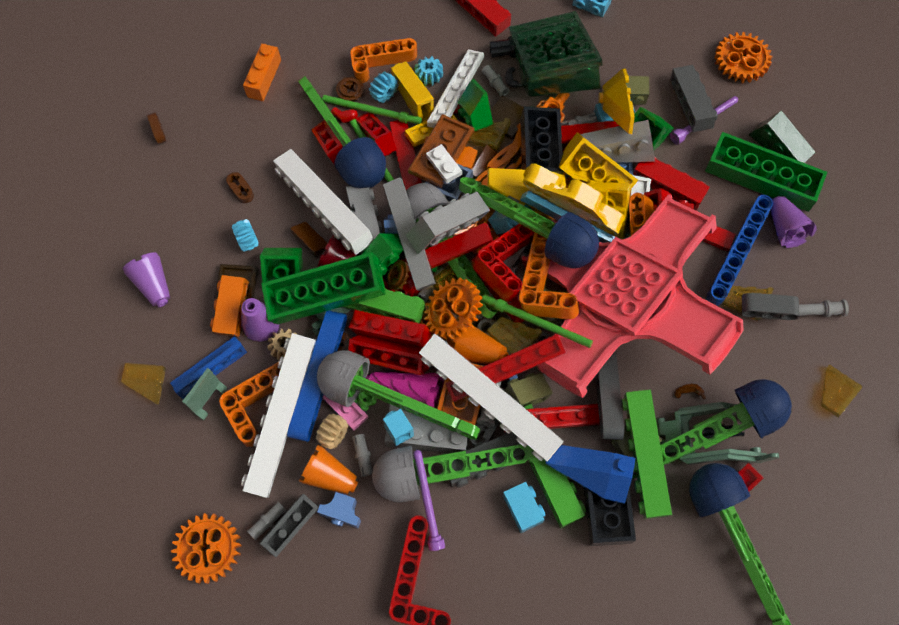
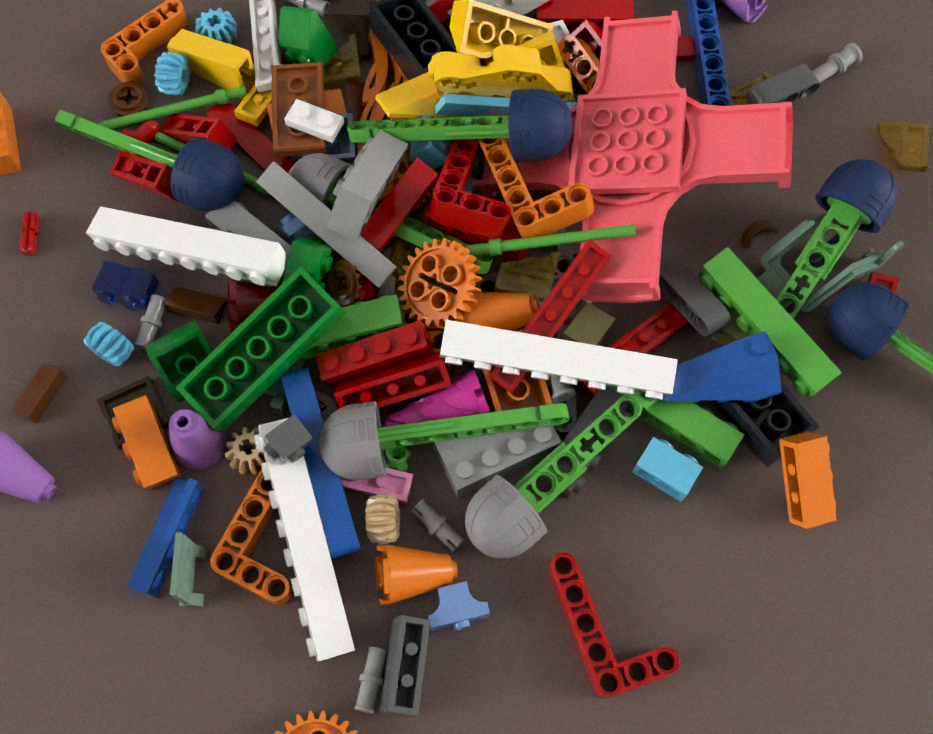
camera: 35 degrees left, 0 degrees up
(144, 380) = (88, 604): clear yellow wing -> none
(192, 242) = (39, 393): none -> reddish brown slope
(242, 144) = (28, 240): none -> red piece
(243, 185) = (62, 286): reddish brown beam -> none
(276, 204) = (125, 285): none -> clear blue brick
(277, 235) = (150, 322): none -> light grey pin
(300, 352) = (287, 441): none -> dark grey brick
(398, 426) = (466, 461): medium azure brick -> none
(435, 540) = (593, 572): medium lavender piece -> none
(605, 568) = (808, 479): none -> orange brick

